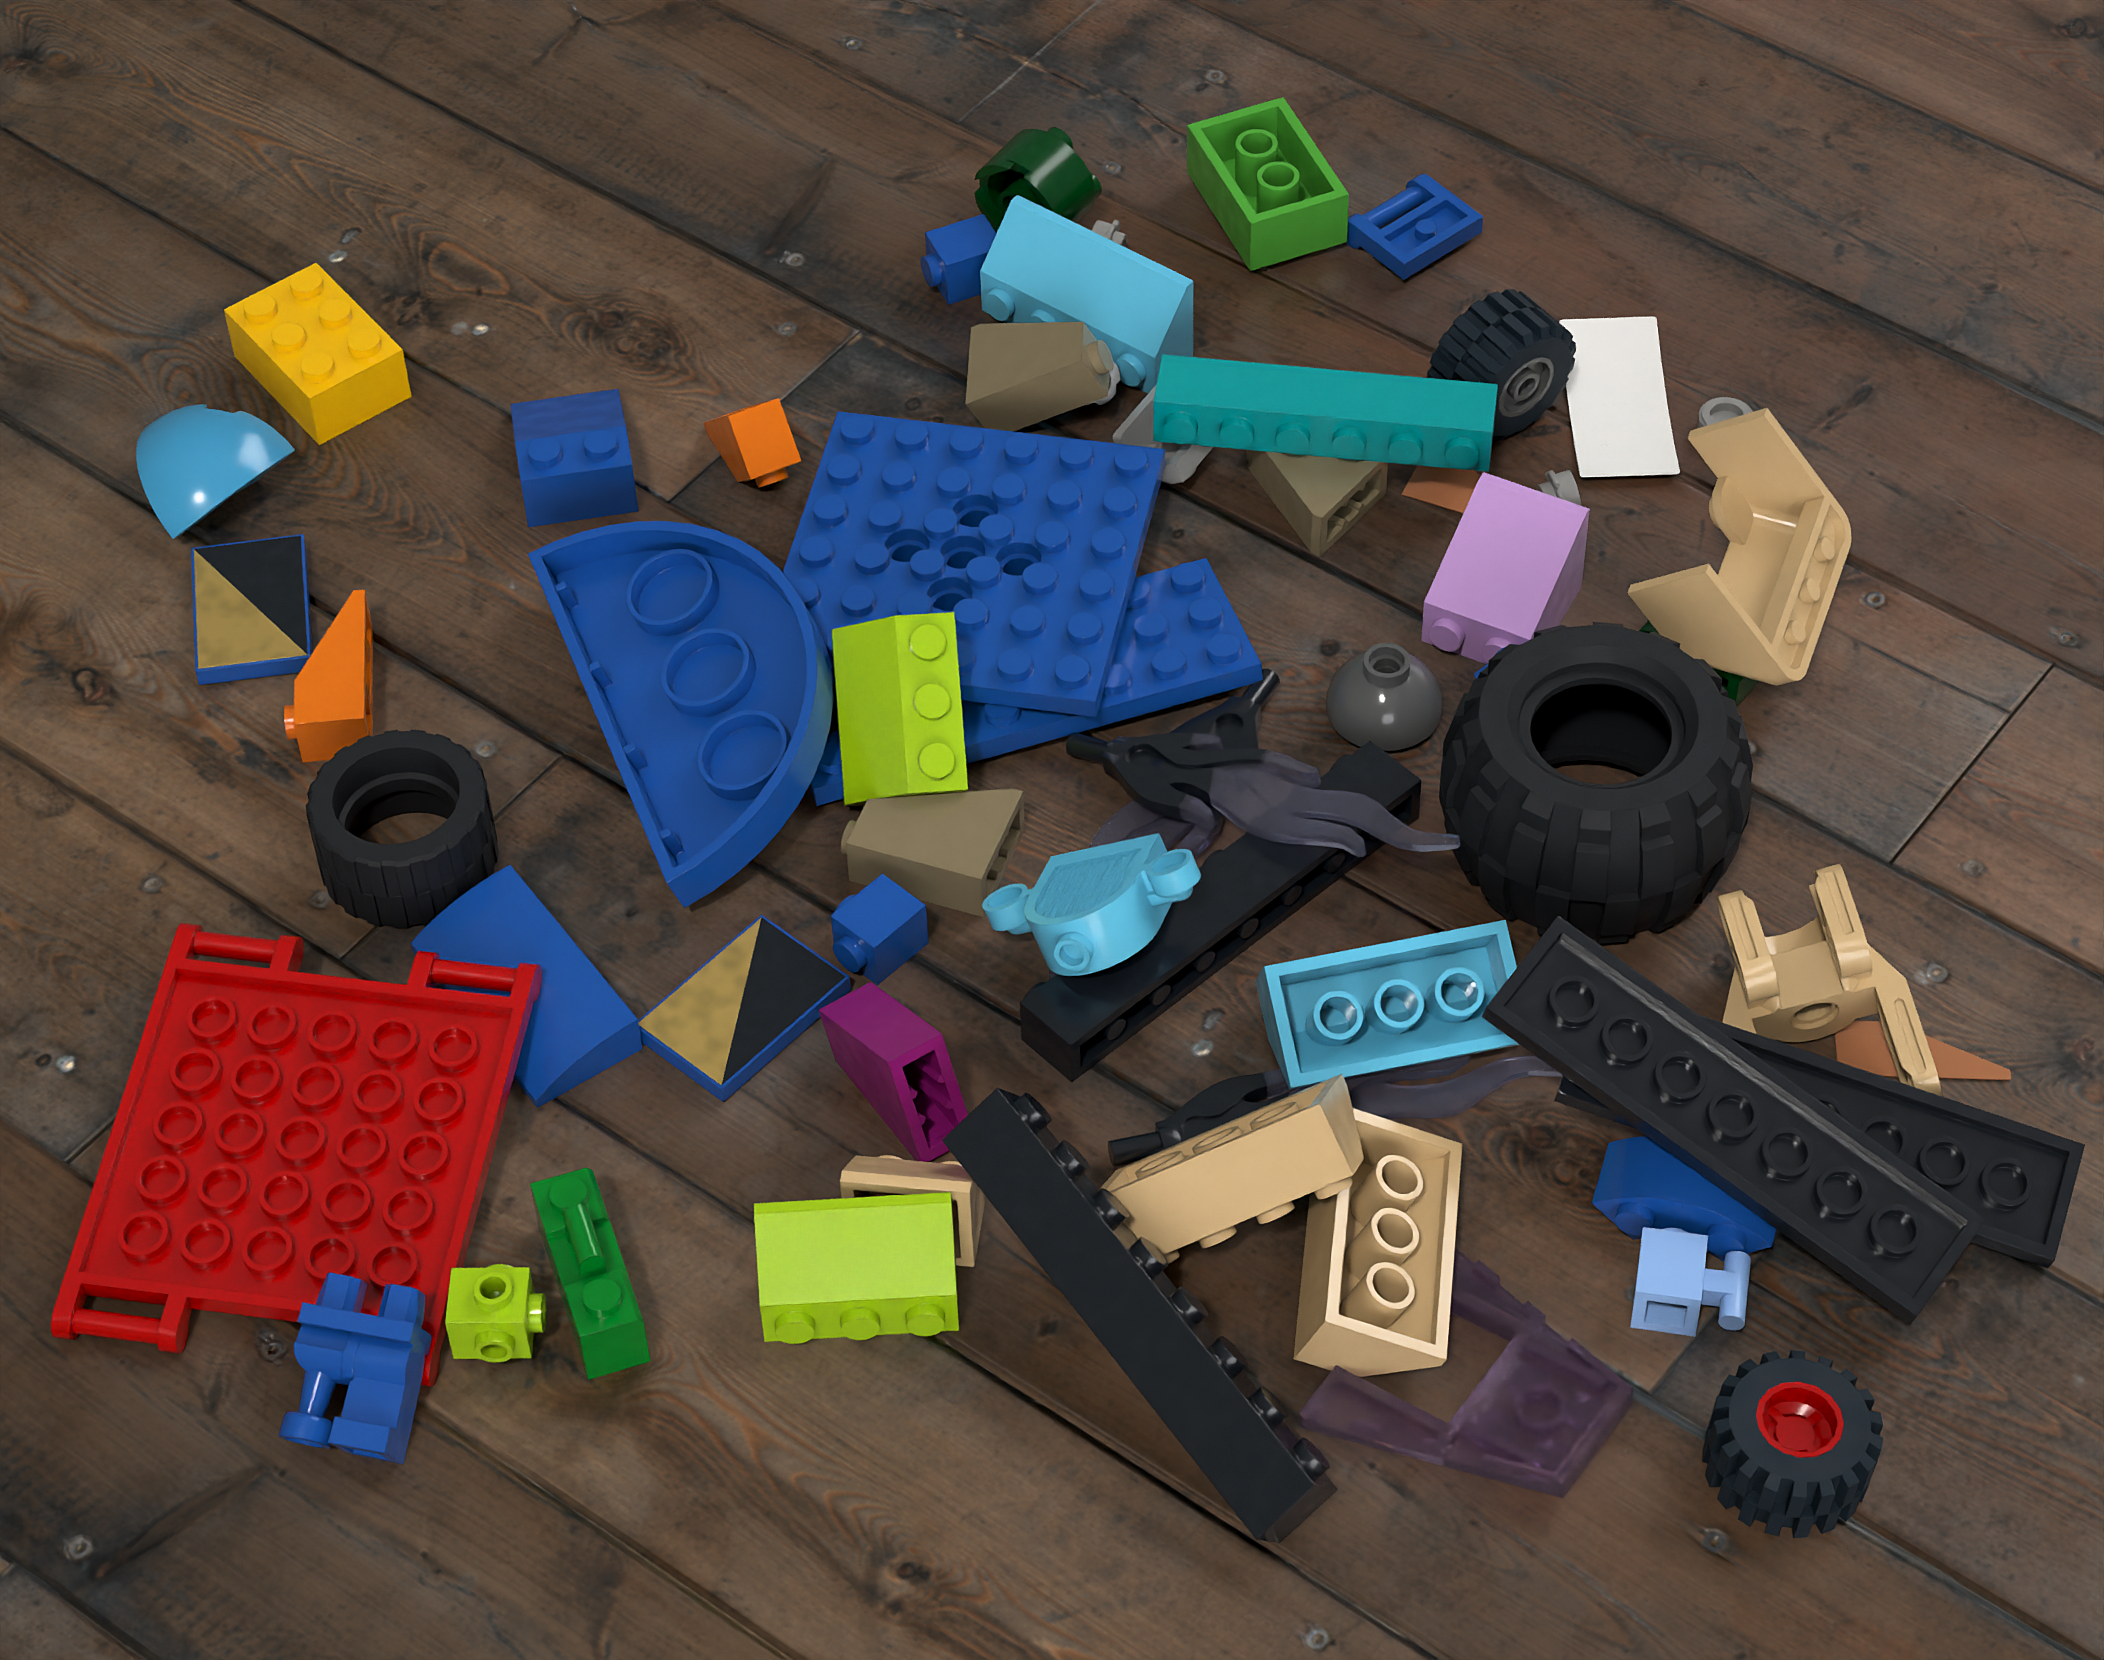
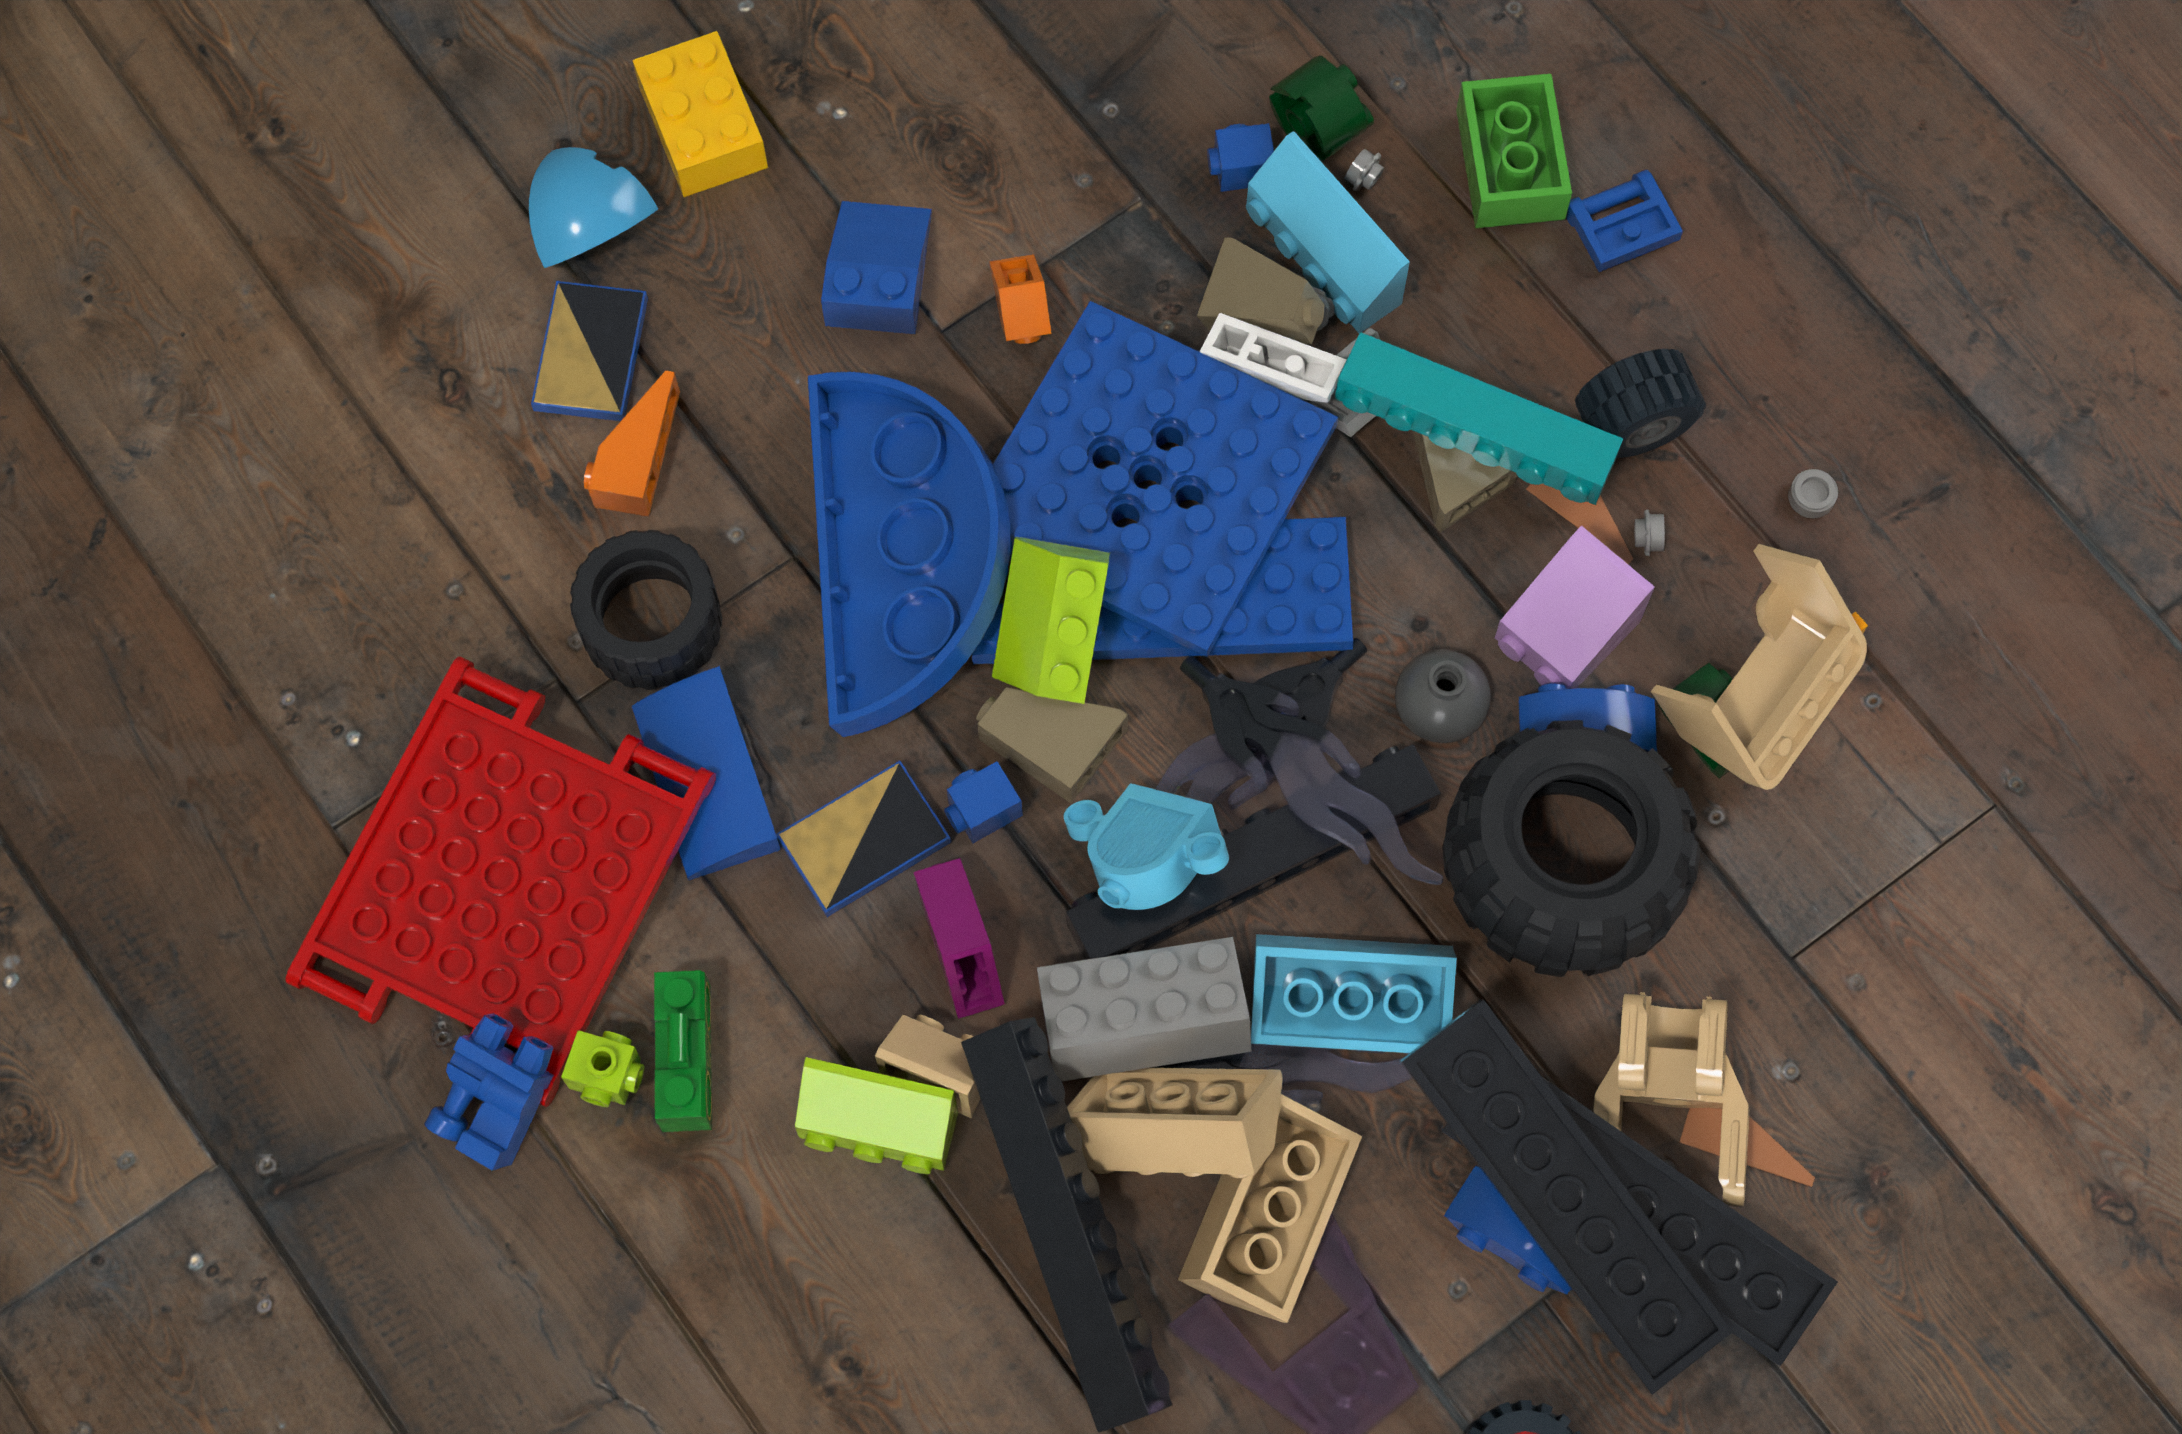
camera: 15 degrees right, 20 degrees up
(1072, 412) = (1274, 359): none -> white slope
(1158, 1074) = (1144, 1009): none -> light grey brick
(1619, 399) = (1734, 443): white sticker -> none
(1675, 1283) = (1484, 1300): light blue brick -> none

